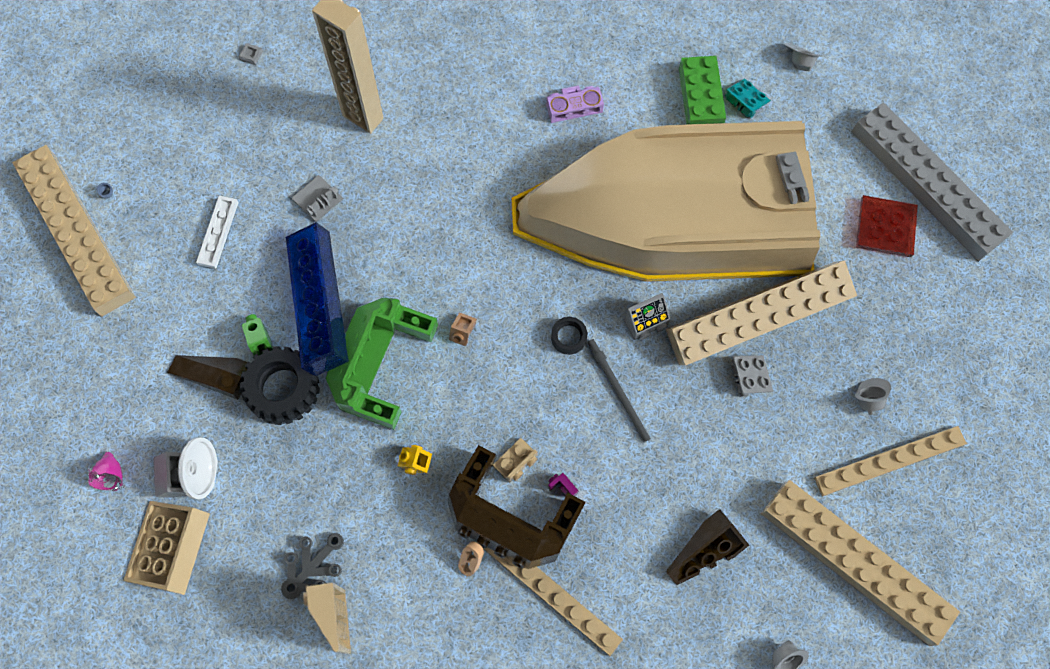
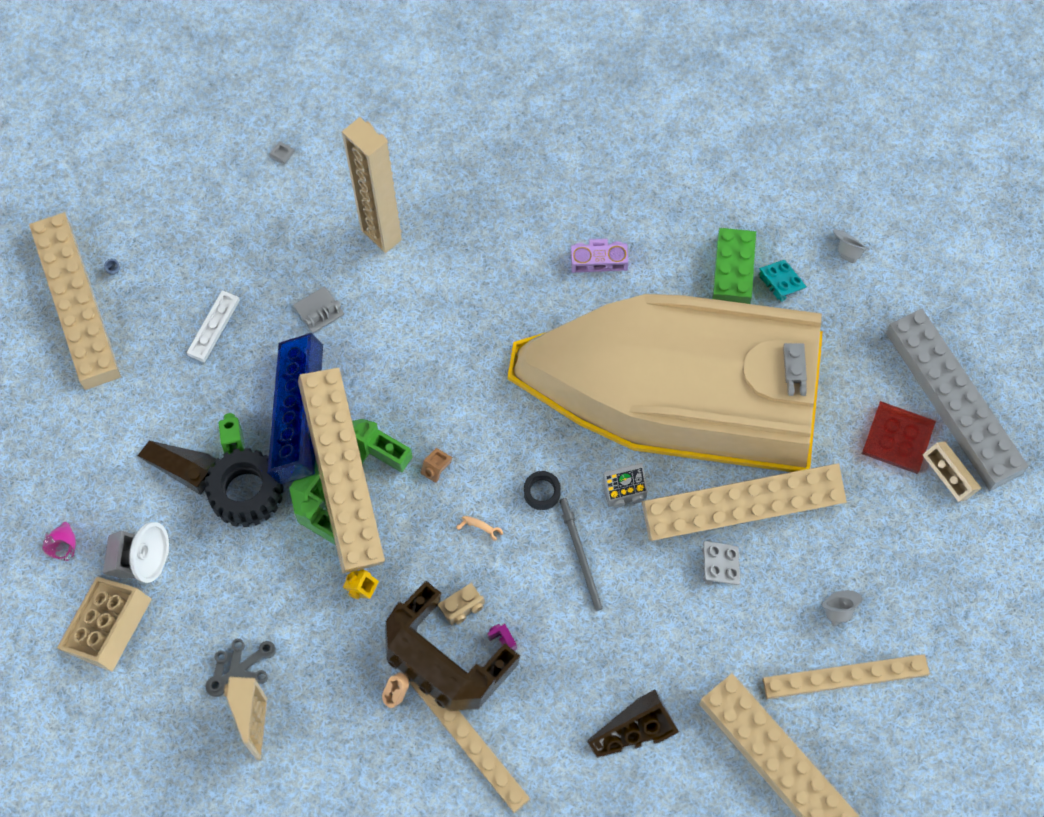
camera: 15 degrees right, 5 degrees down
(373, 352) = (341, 470): none -> tan brick
(517, 379) = (479, 524): none -> light nougat piece
(944, 249) = (951, 471): none -> tan brick

